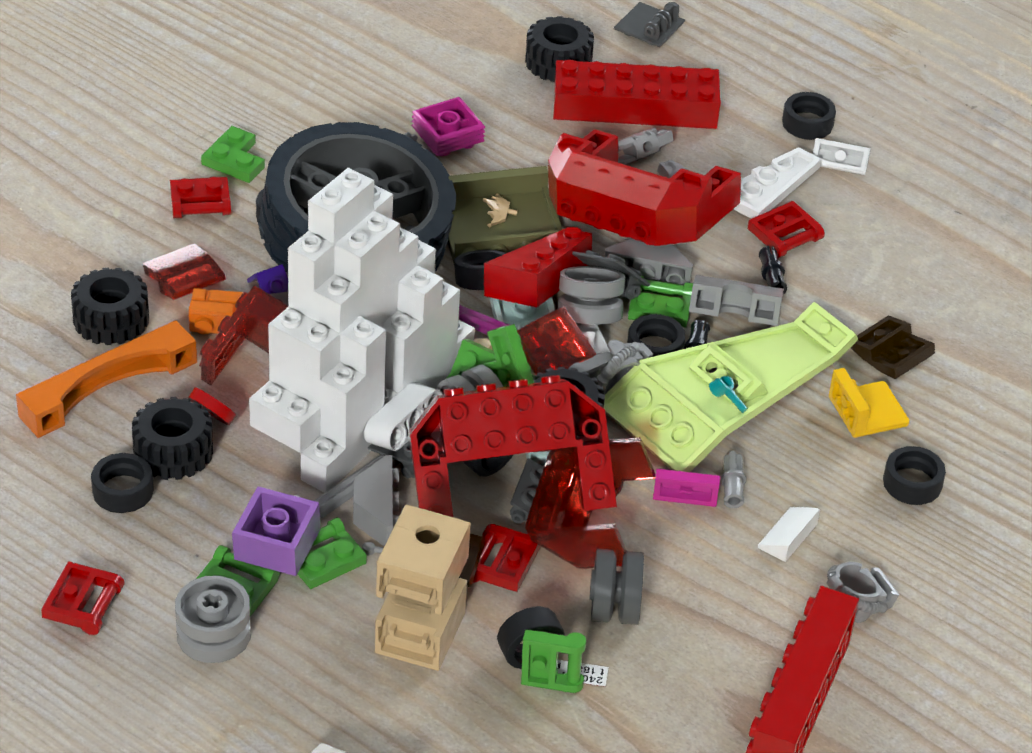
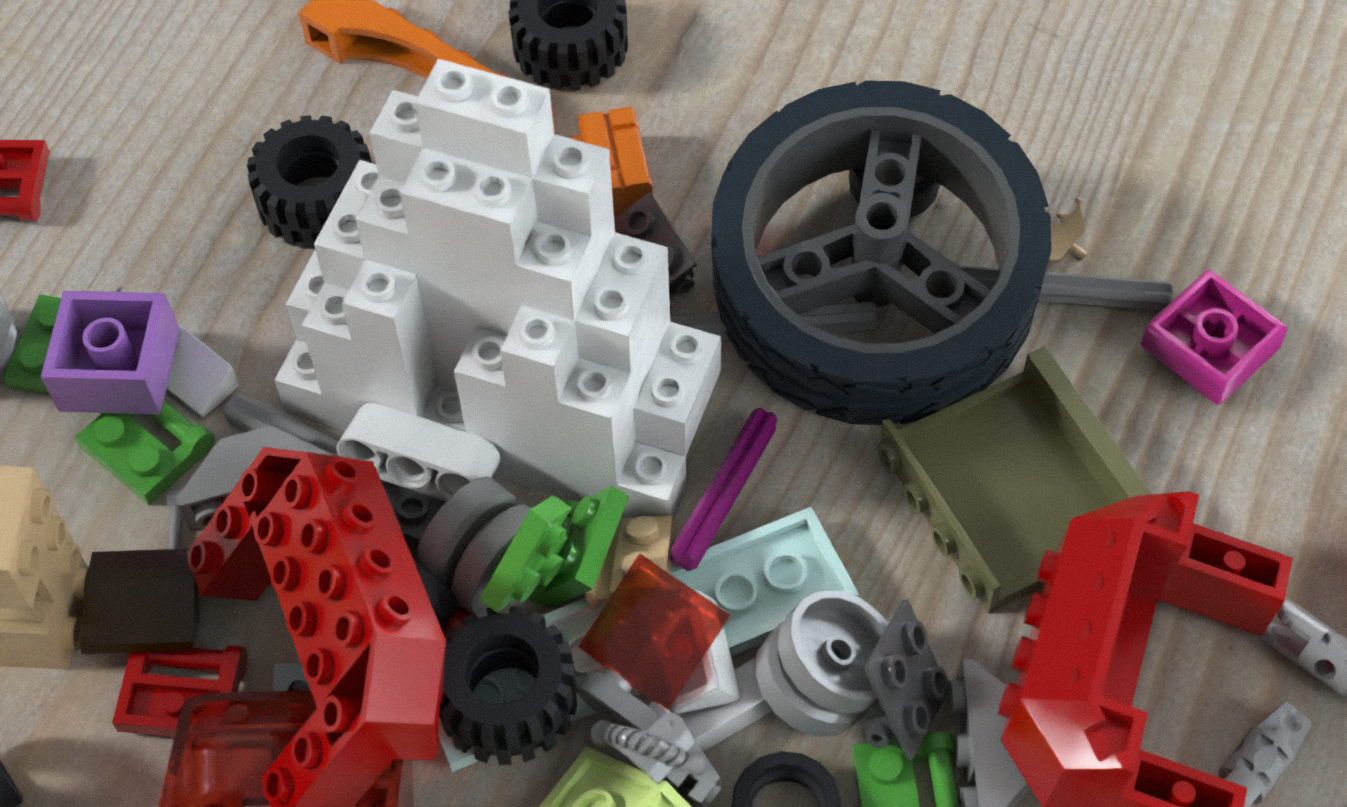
camera: 80 degrees right, 15 degrees up
(122, 465) = (209, 130): black tyre -> none
(183, 271) = (695, 93): clear red slope -> none
(200, 196) = (886, 50): red plate -> none
(230, 155) = (1005, 65): bright green plate -> none
(271, 280) = (694, 210): dark purple bracket -> none
(470, 268) = (834, 506): black tyre -> none
(499, 208) = (1038, 472): tan piece -> none
(533, 271) = (840, 543): red wedge -> none

